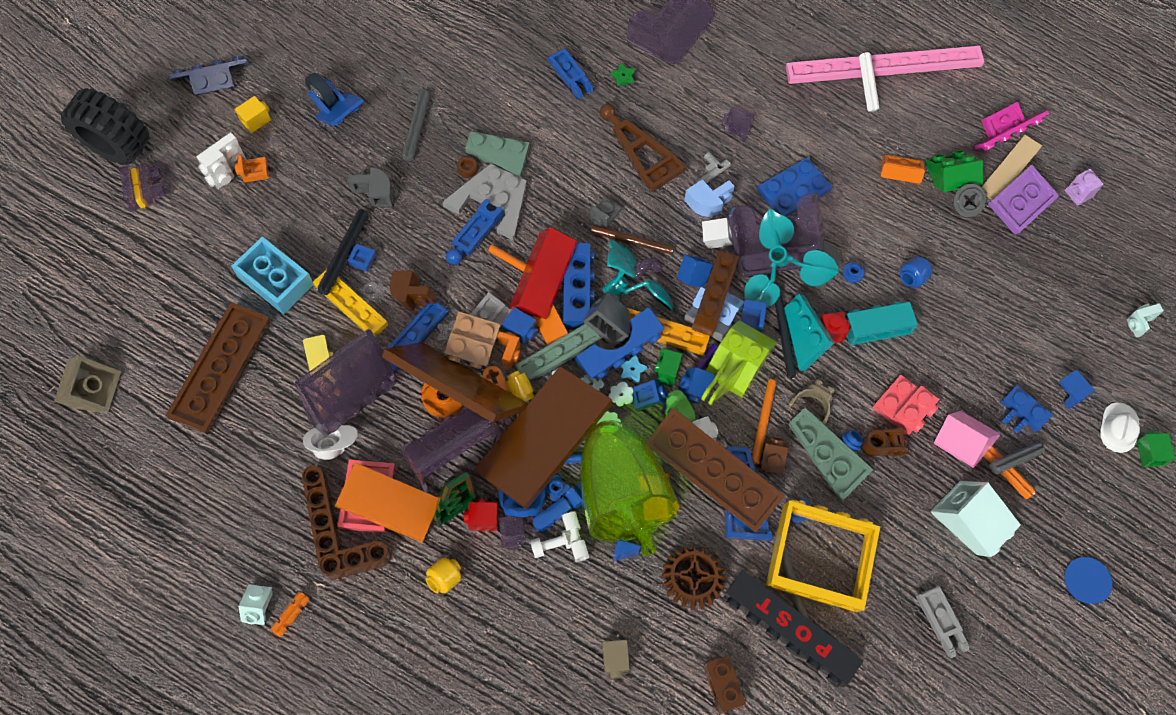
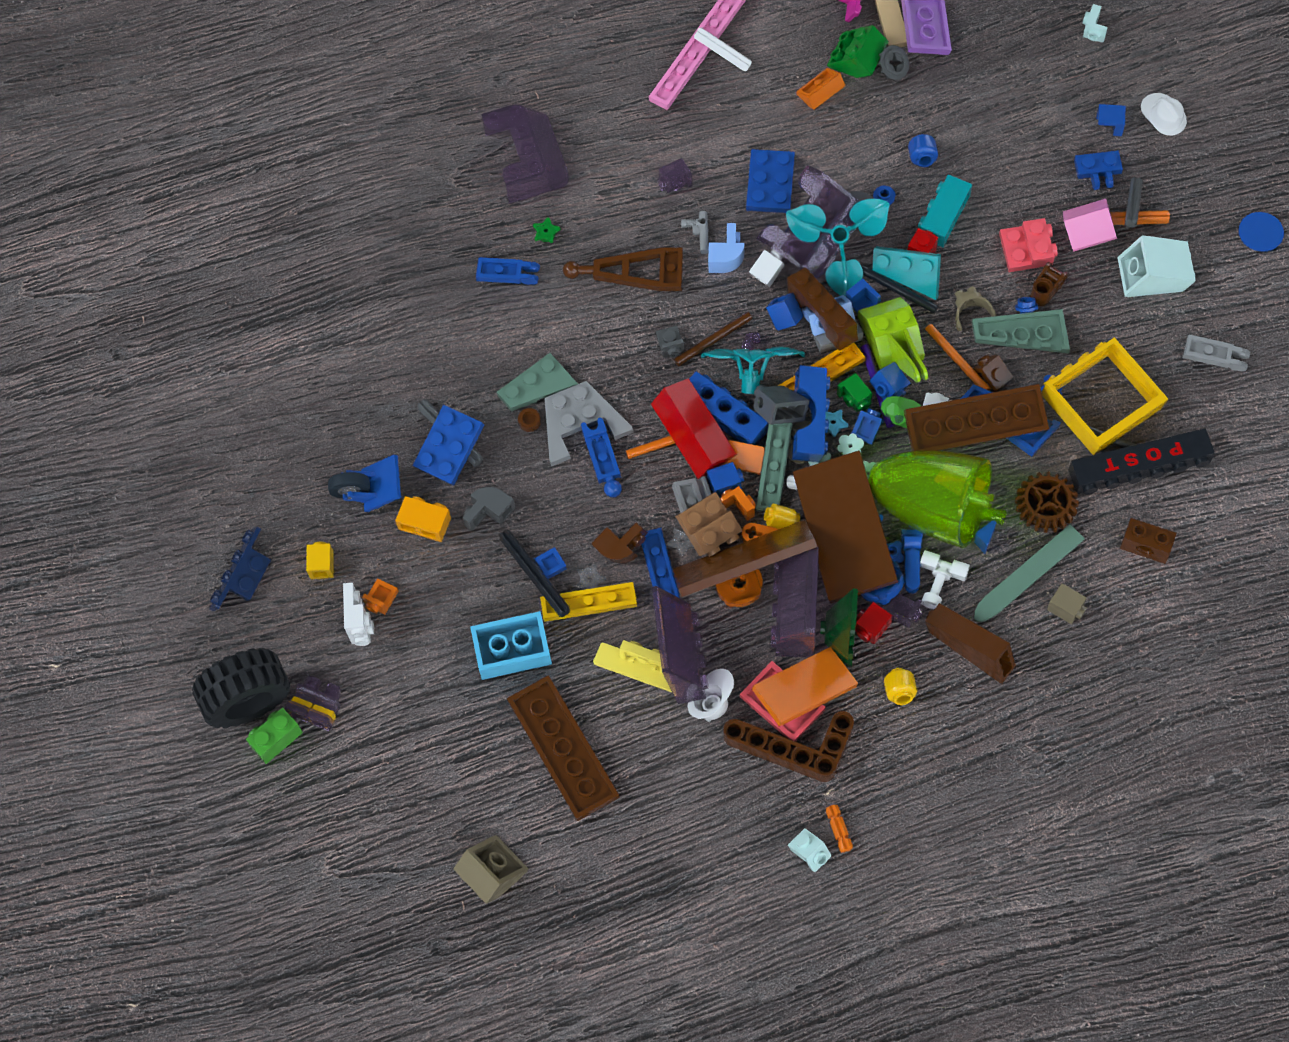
camera: 45 degrees left, 0 degrees up
(96, 177) = (273, 735): none -> bright green brick
(331, 152) = (423, 518): none -> light orange brick
(402, 129) = (448, 445): none -> blue plate
(521, 604) = (972, 642): none -> reddish brown slope
(621, 607) = (1028, 573): none -> sand green piece
(1155, 449) = (1201, 104): green brick -> none

